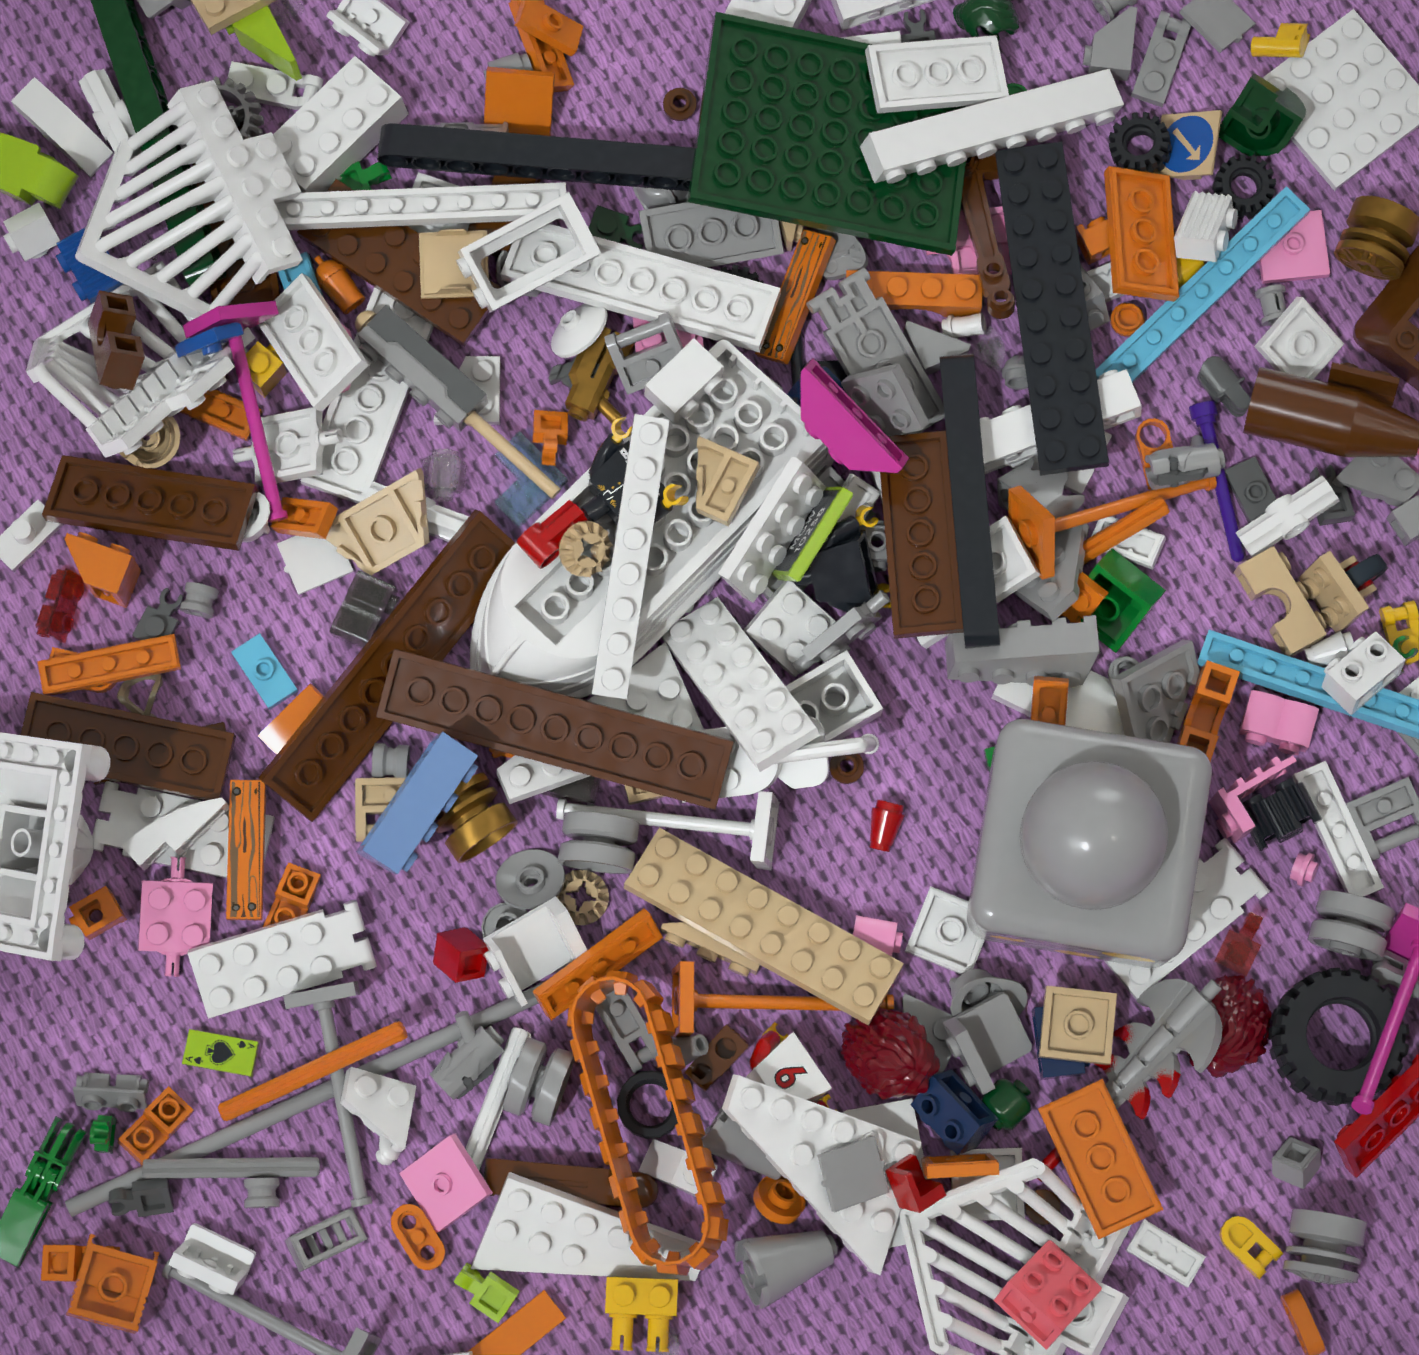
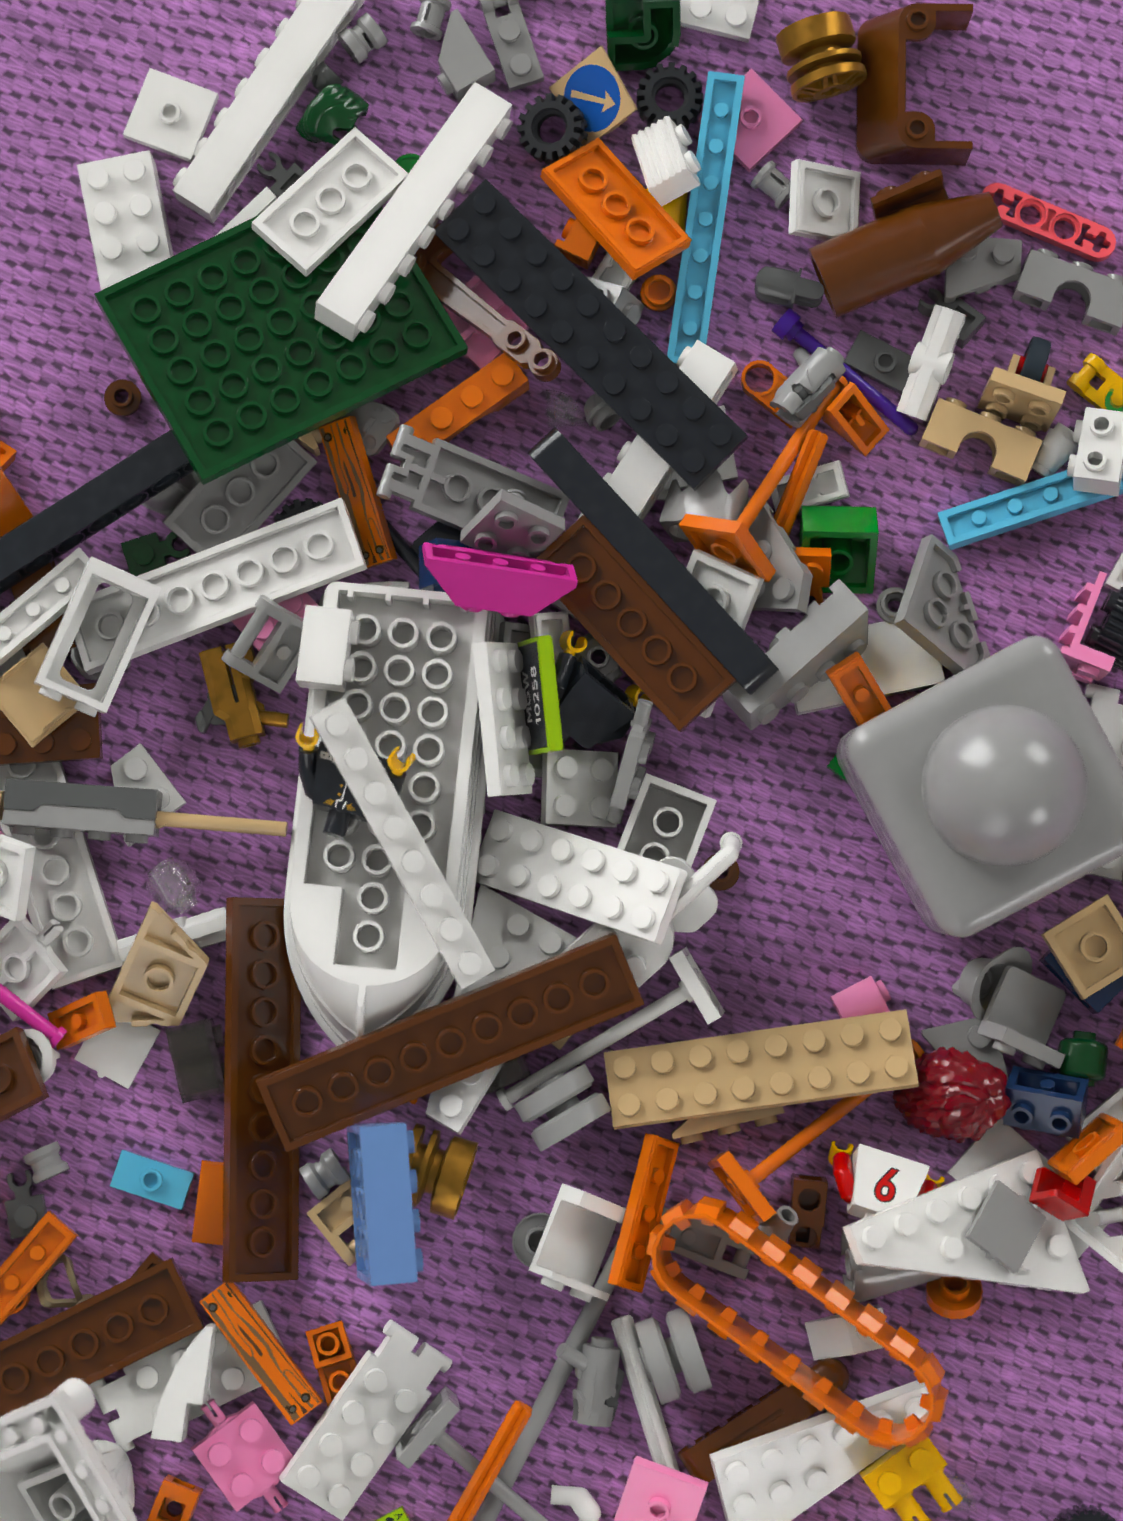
camera: 30 degrees left, 5 degrees up
(381, 1104) = (550, 1480): white wing -> none
(460, 954) = (517, 1295): red panel -> none
(524, 496) = (258, 852): clear light blue plate -> none
(528, 868) = (513, 1176): light grey dish -> none
(543, 539) = (315, 885): red piece -> none
(551, 430) = (235, 775): orange plate -> none
(571, 548) = (345, 876): tan gear -> none
(578, 330) = (192, 668): white dish -> none
(595, 887) = (587, 1145): tan gear -> none
(626, 1116) = (773, 1325): black tyre -> none
(722, 480) = (427, 711): tan wing -> none
(782, 1263) = (1000, 1345): light grey cone -> none
(885, 824) = (792, 896): red cone -> none
(931, 345) = (511, 446): light grey slope -> none
(944, 934) = (915, 952): white tile -> none
(964, 326) = (523, 407): white pin -> none
(1200, 516) = (855, 419): none -> orange slope
(1208, 707) = (987, 580): orange arch -> none
(1278, 722) = (1057, 548): bright pink brick -> none

